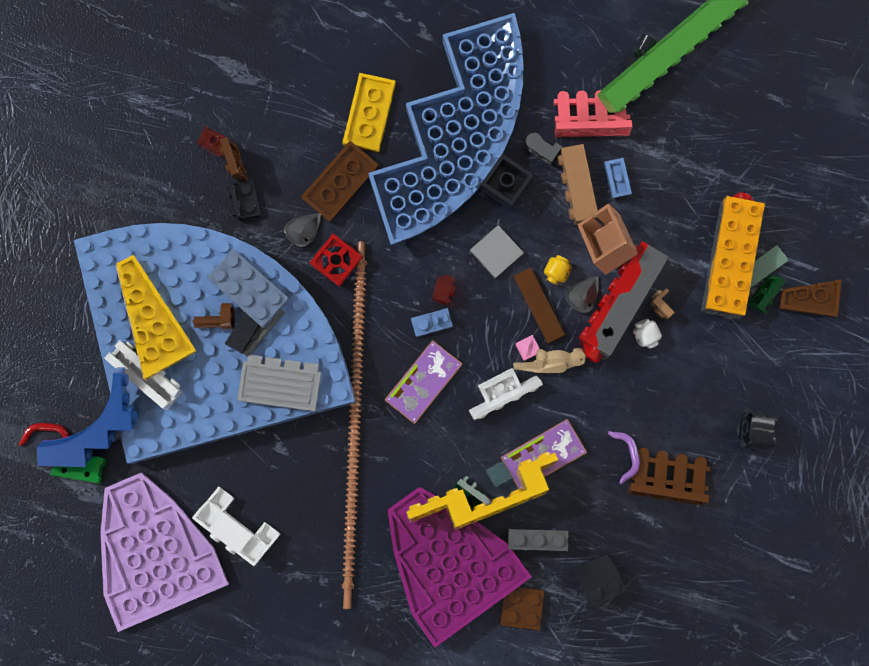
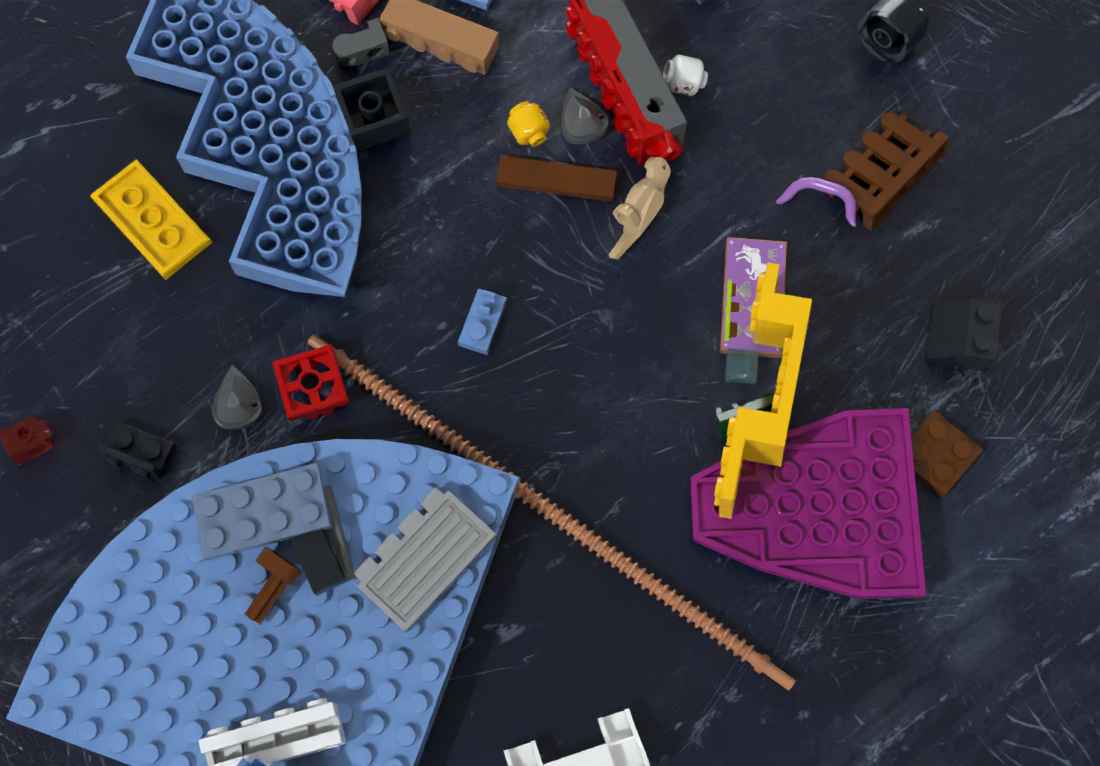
camera: 55 degrees left, 10 degrees down
(154, 328) = (222, 680): yellow wing -> none
(235, 165) = (70, 424): reddish brown plate -> none
(339, 181) = (210, 311): reddish brown plate -> none
(423, 382) = (553, 383): medium lavender tile -> none
(444, 290) = (453, 276): clear red brick -> none
(496, 251) = (450, 183): light grey tile -> none
(502, 390) = (635, 291): white bracket -> none
(527, 347) = (601, 226): bright pink tile -> none
(537, 539) = (861, 371): dark grey brick -> none
(609, 244) = (542, 32): nougat piece -> none
(662, 310) = (662, 39): medium nougat bracket -> none

